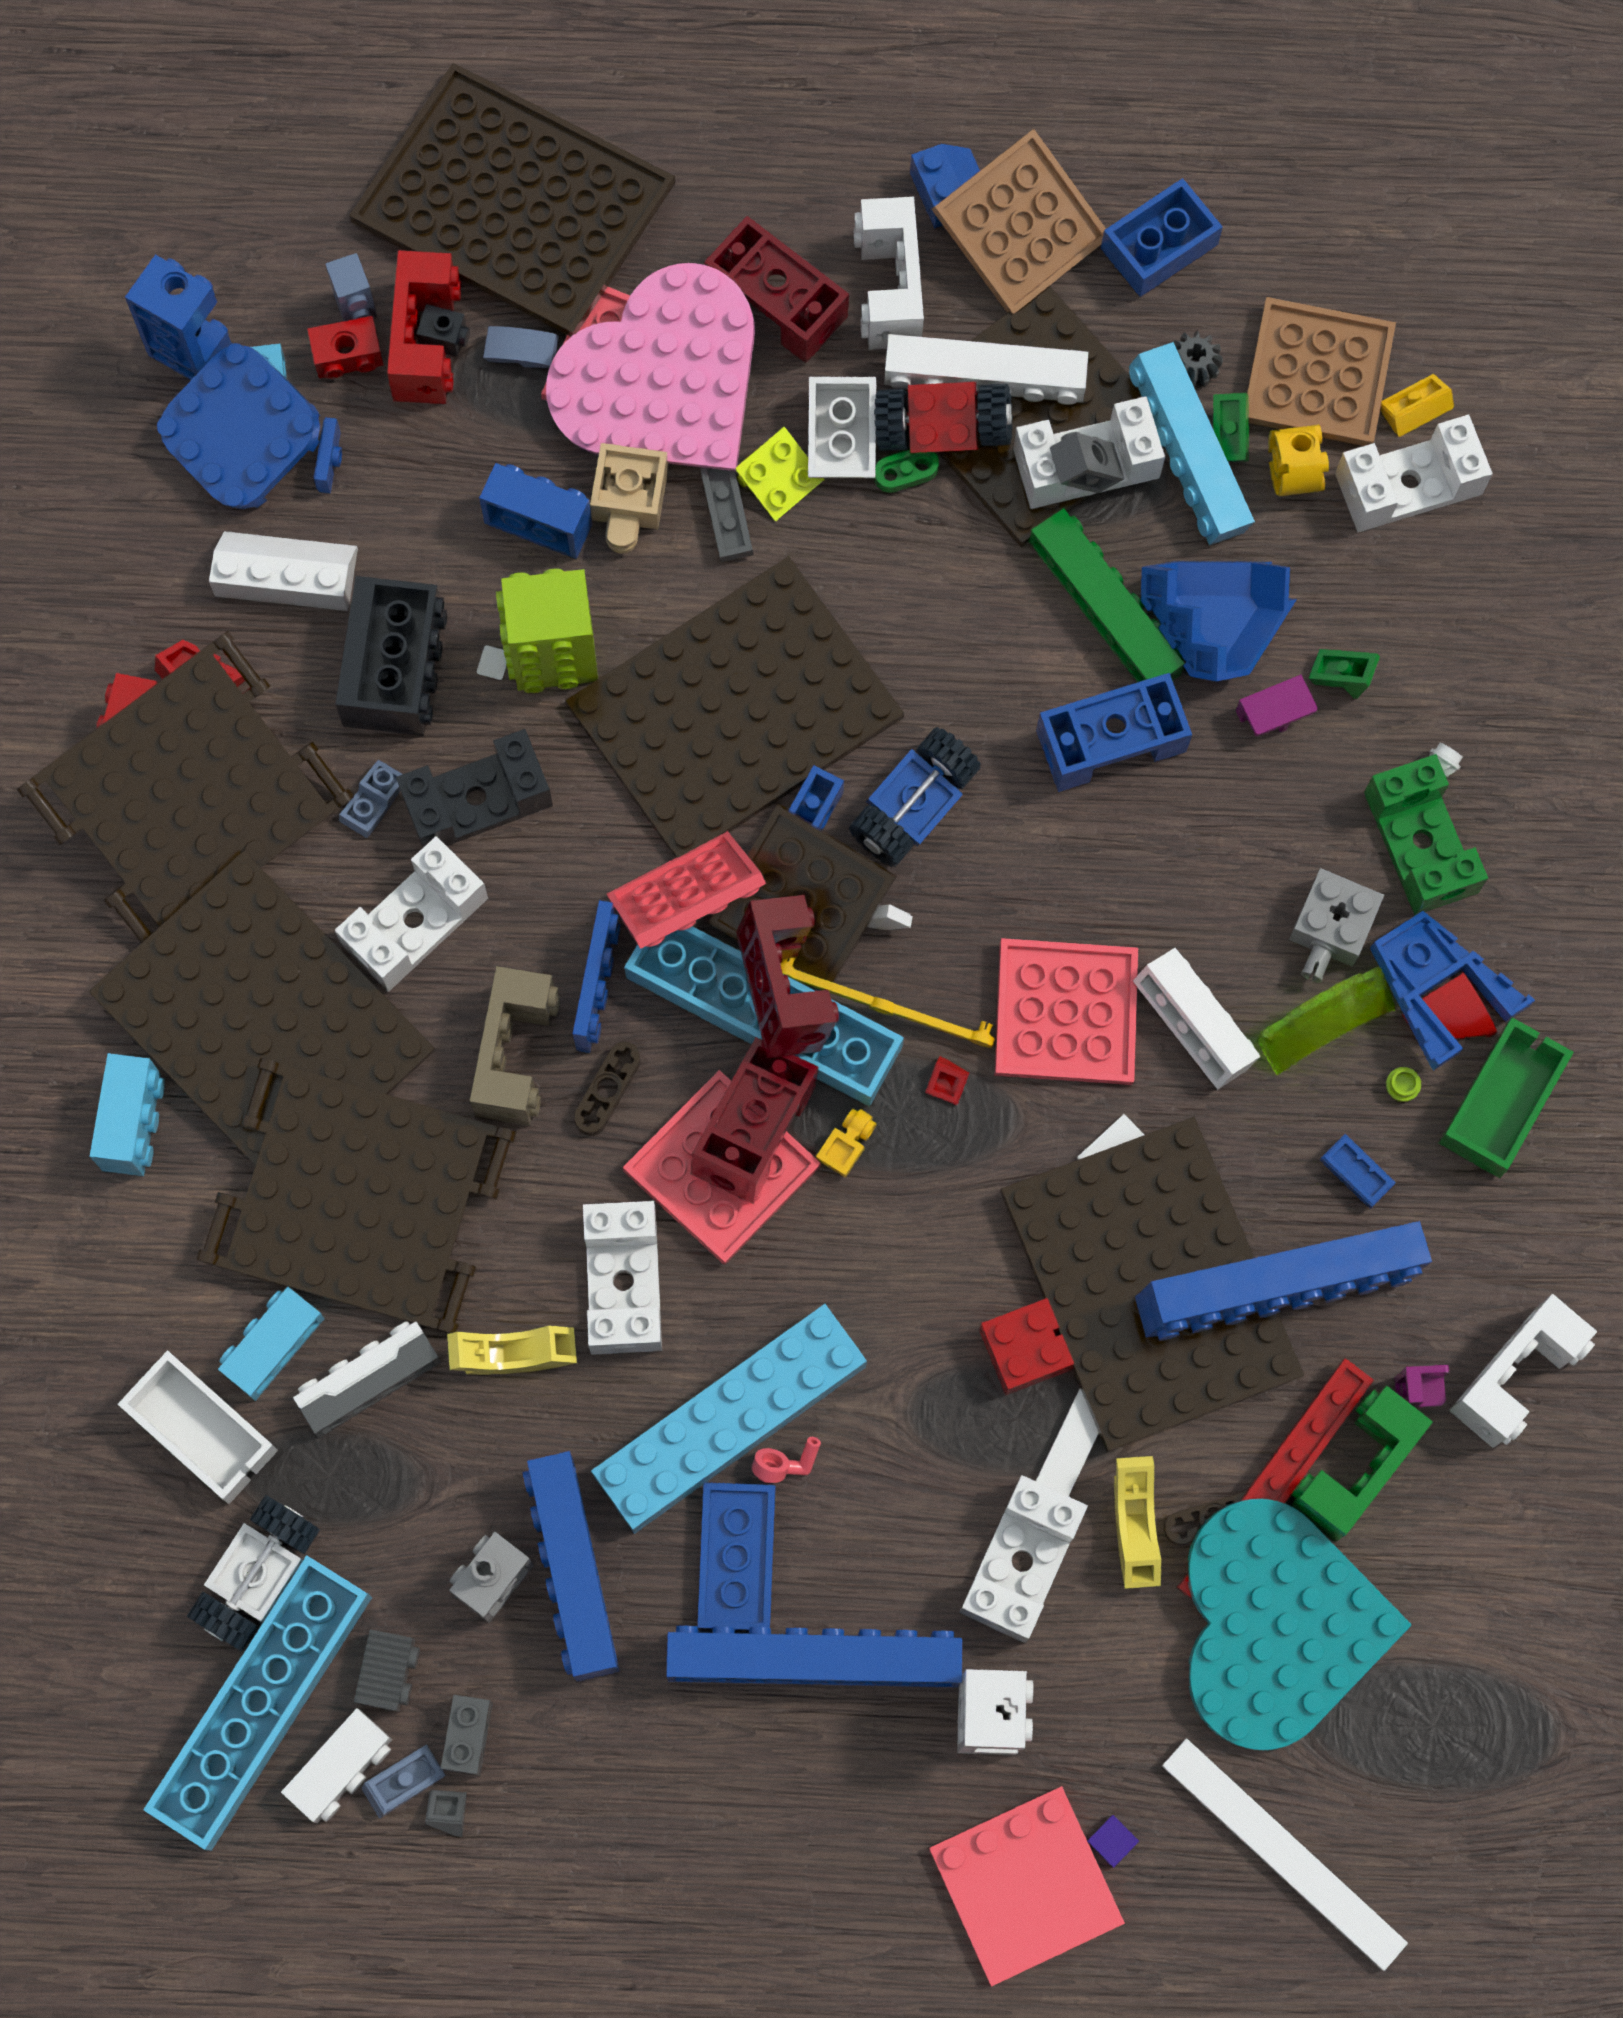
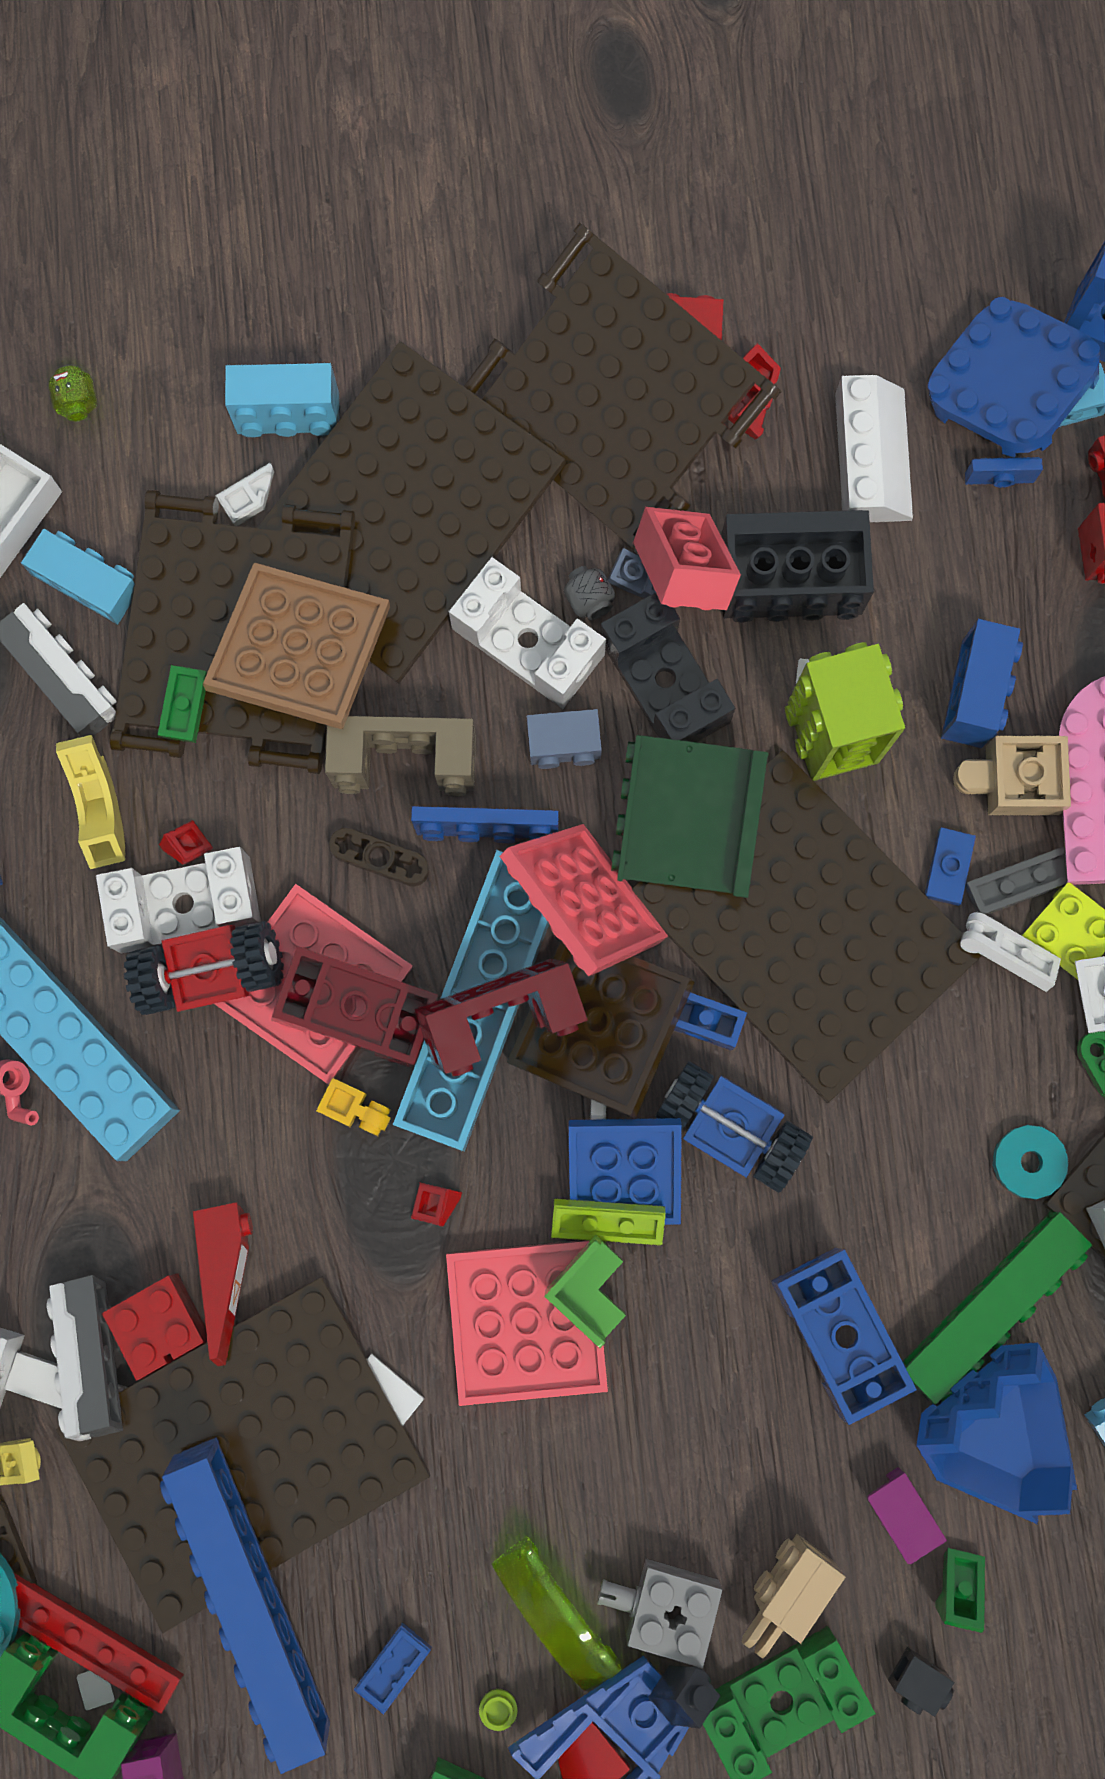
camera: 85 degrees right, 5 degrees up
(72, 1331) = (72, 393): none -> clear neon green head
(213, 1171) = (247, 496): none -> white tile
(370, 749) = (686, 559): none -> coral brick
(379, 852) = (589, 593): none -> dark grey head
(394, 1121) = (297, 645): none -> medium nougat plate
(428, 1247) = (183, 704): none -> green plate
(520, 897) = (564, 738): none -> sand blue brick
(563, 1273) = (185, 843): none -> red slope
(620, 784) = (690, 814): none -> dark green panel
(694, 1256) = (204, 968): none -> plate
(701, 571) = (949, 866): none -> blue plate
(789, 531) = (1010, 950): none -> white plate
(943, 898) = (627, 1162): none -> blue plate
(966, 1276) = (222, 1260): none -> red slope
(980, 1037) = (484, 1232): yellow piece -> none
(986, 922) = (608, 1221): none -> lime tile
(988, 532) = (1051, 1156): none -> teal tile
(1041, 955) = (578, 1292): none -> bright green panel
(1047, 1411) = (84, 1359): none -> dark grey piece
(1196, 1018) = (535, 1468): white brick -> none
(1331, 810) = (792, 1594): none -> tan brick
(1347, 1447) = (94, 1690): none -> white sticker
(1405, 912) = (684, 1696): none -> black brick
(1418, 719) = (921, 1683): none -> black brick
(1448, 758) = (882, 1721): white plate -> none

